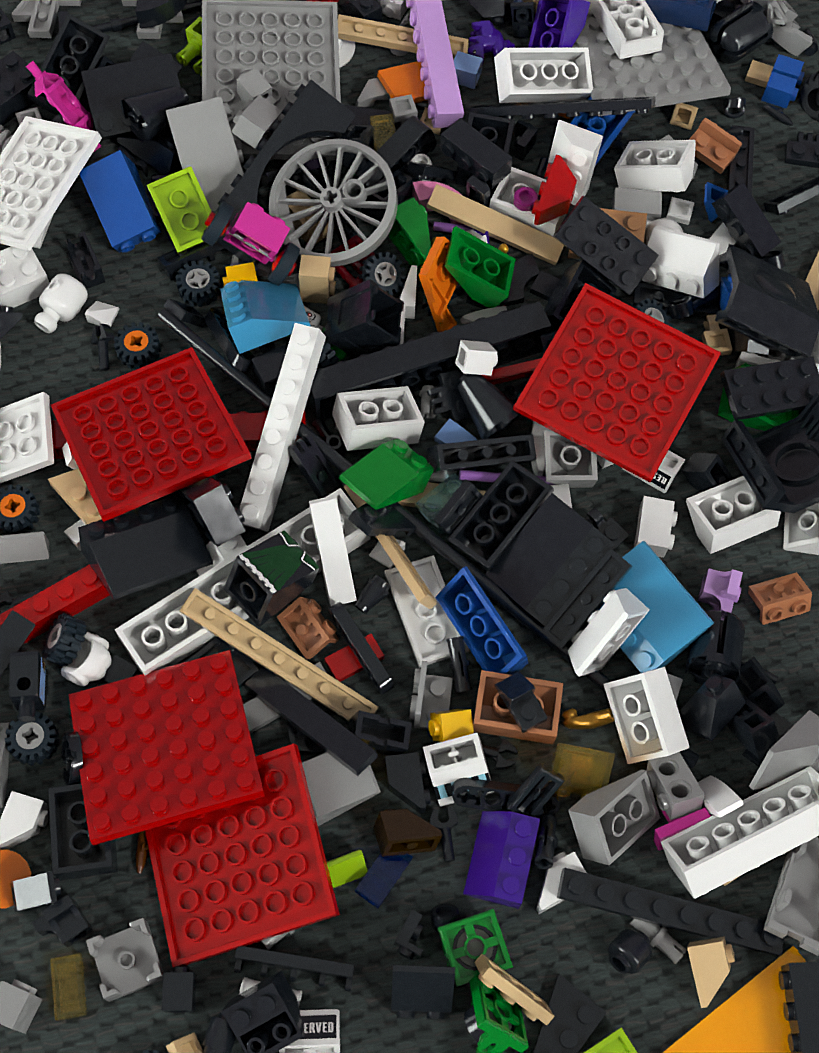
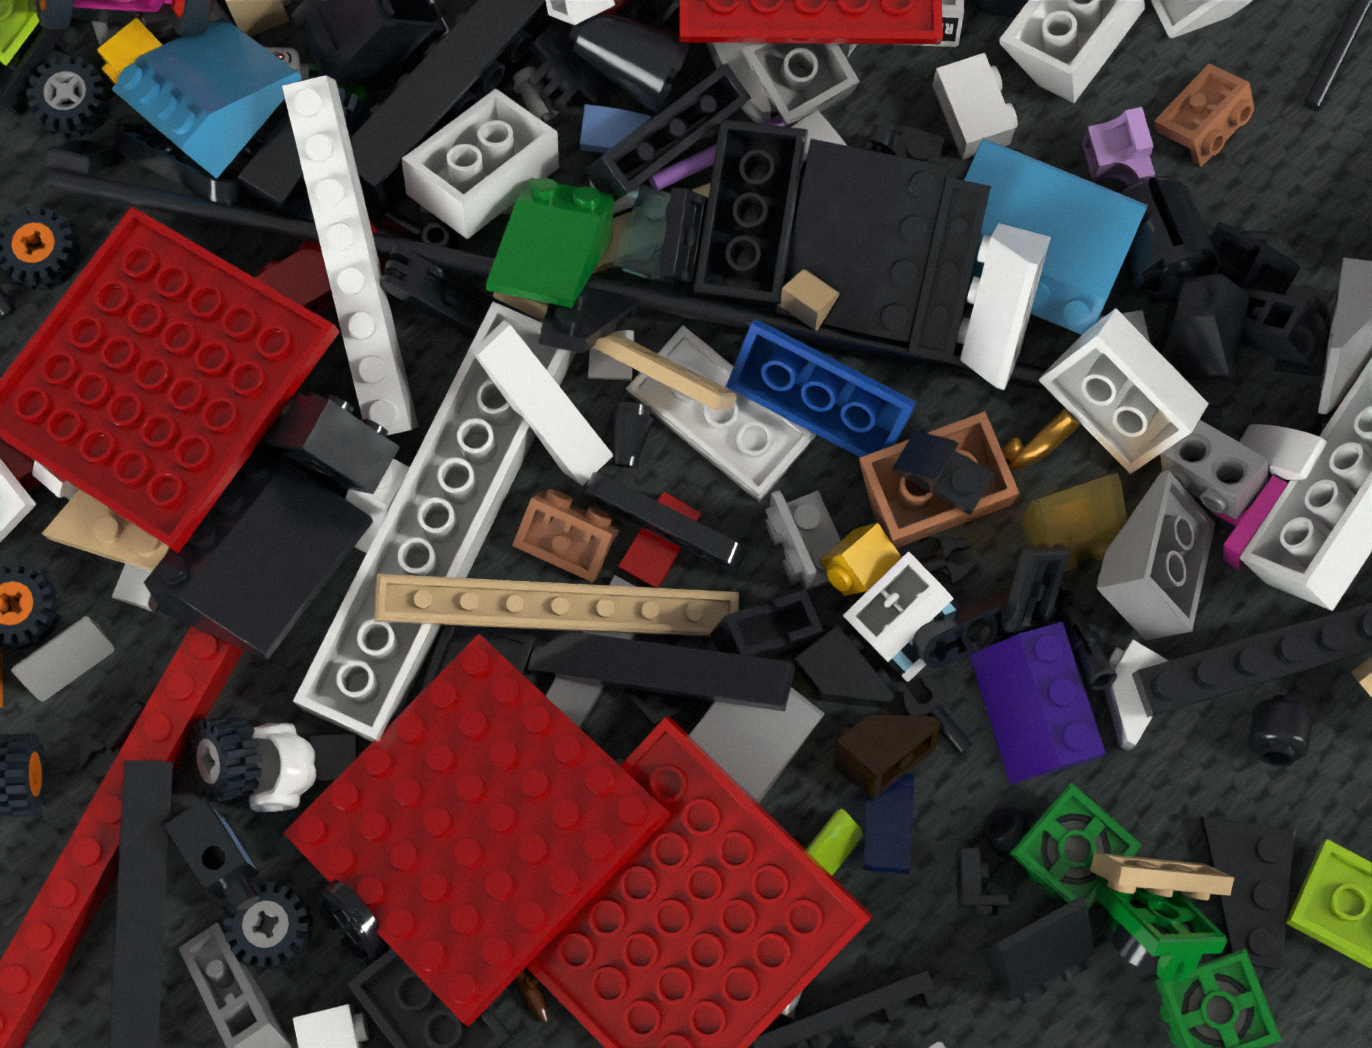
camera: 25 degrees left, 10 degrees up
(270, 576) = (478, 494): black slope -> none
(459, 664) = (817, 465): black pin -> none
(504, 574) = (808, 298): none -> tan slope
(661, 939) = (1311, 690): light grey pin -> none

